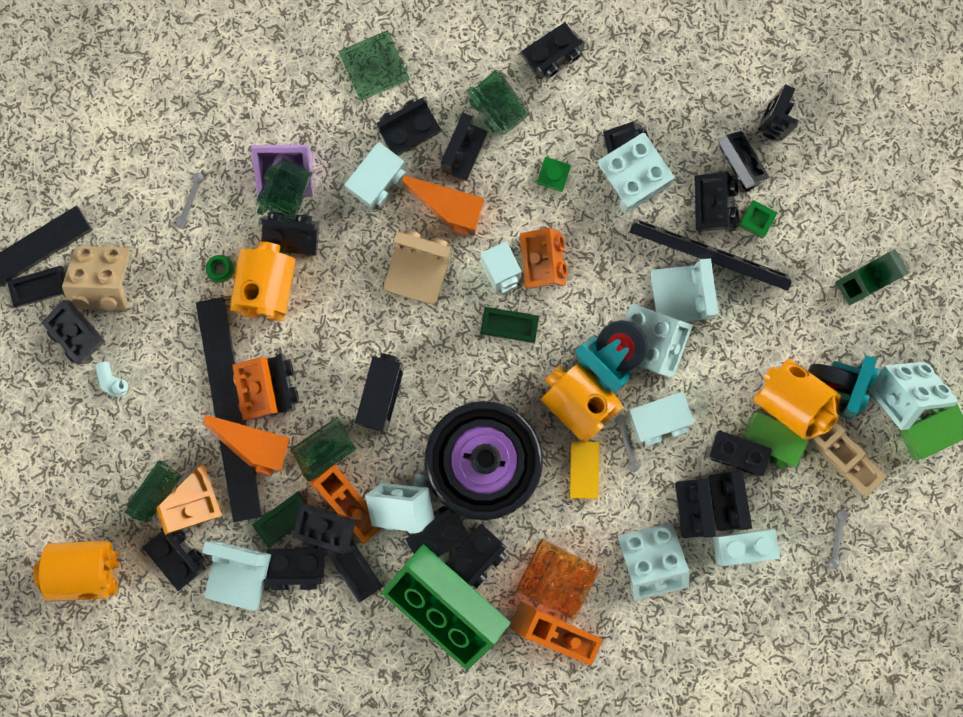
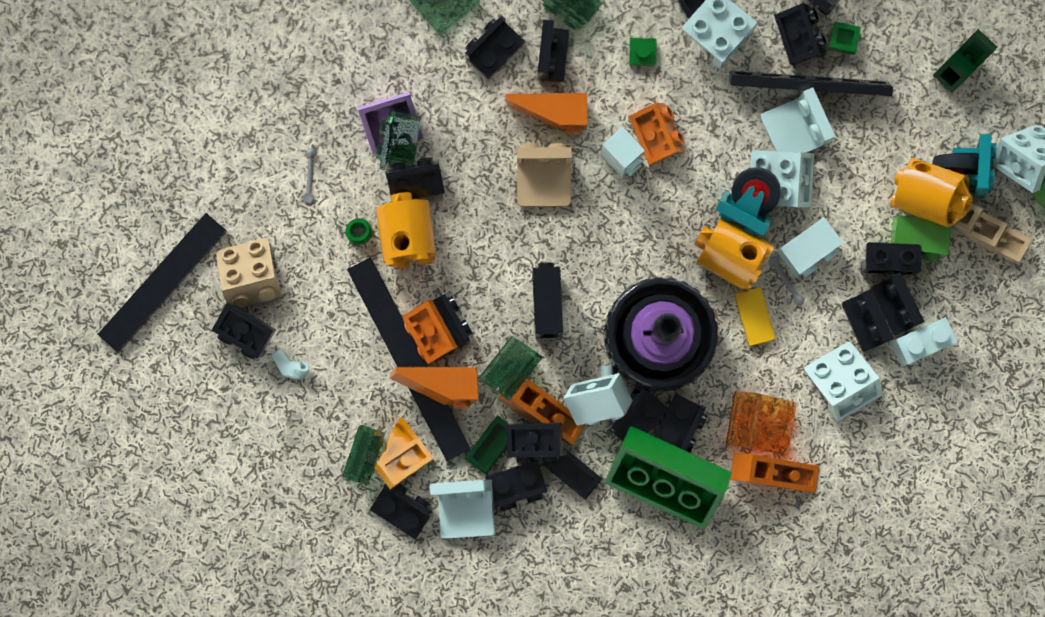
camera: 15 degrees left, 0 degrees up
(36, 286) = (193, 299): black tile -> none
(77, 571) = (318, 547): light orange cylinder -> none
(376, 176) = (479, 102): light aqua brick -> none
(509, 325) = (645, 204): dark green tile -> none
(841, 515) = (1002, 289): light grey hinge -> none

